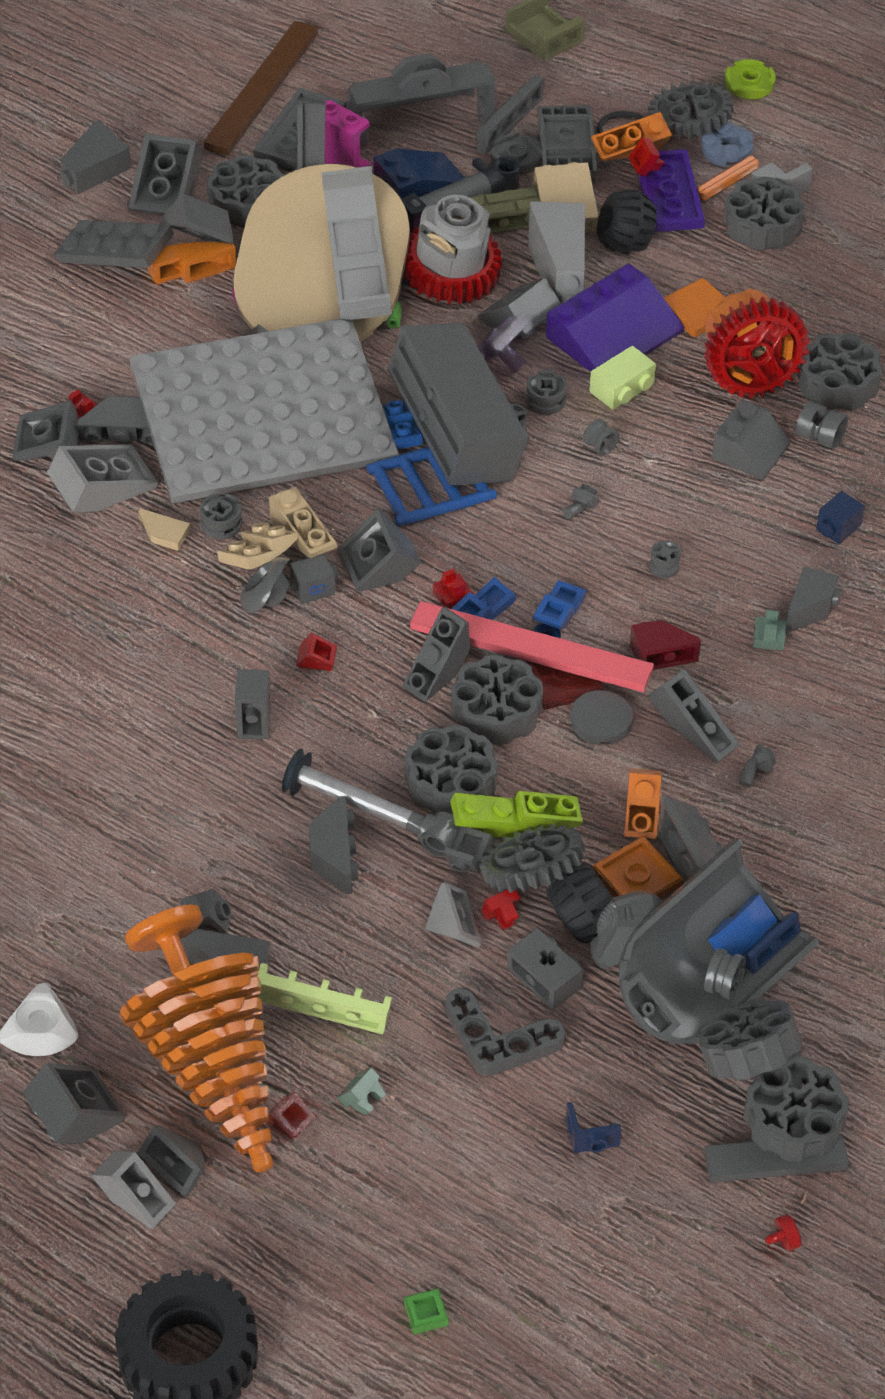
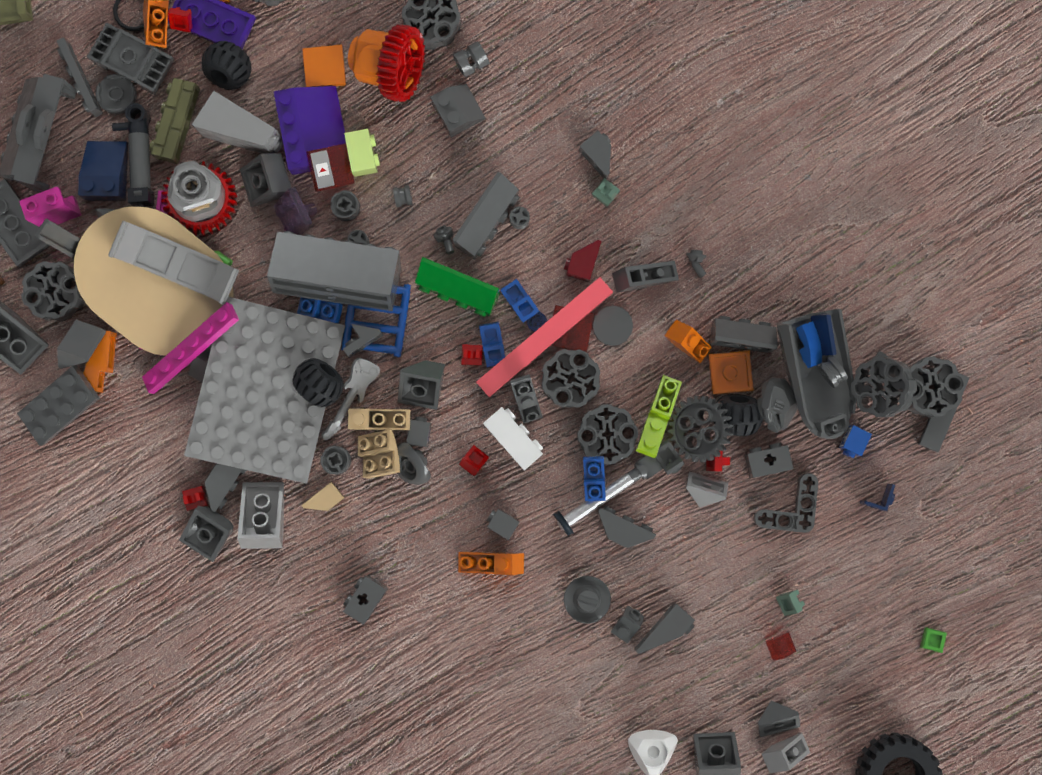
camera: 55 degrees left, 35 degrees up
(58, 618) = (374, 592): none -> dark grey brick
(194, 727) = (491, 563): none -> orange slope
(206, 1028) = (720, 674): orange plant -> none
(210, 853) = (587, 599): none -> dark grey hat
(272, 315) = (190, 348): none -> dark pink plate
(307, 444) = (317, 382): none -> black wheel
(323, 1002) = (727, 594): yellowish green hinge -> none
(346, 492) = (361, 375): none -> light grey piece
(373, 666) = (514, 438): none -> white brick
(375, 775) = (594, 478): none -> blue slope
(393, 471) = (367, 336): none -> dark grey slope
(527, 530) = (457, 287): none -> green slope
(568, 184) = (184, 90): tan panel -> none
(579, 351) = (330, 167): none -> clear red tile
(638, 515) = (486, 216): none -> dark grey slope
(648, 1059) = (854, 441): none -> blue brick
(786, 1233) = (996, 435): red tile -> none
(840, 517) = (547, 96): dark blue brick -> none

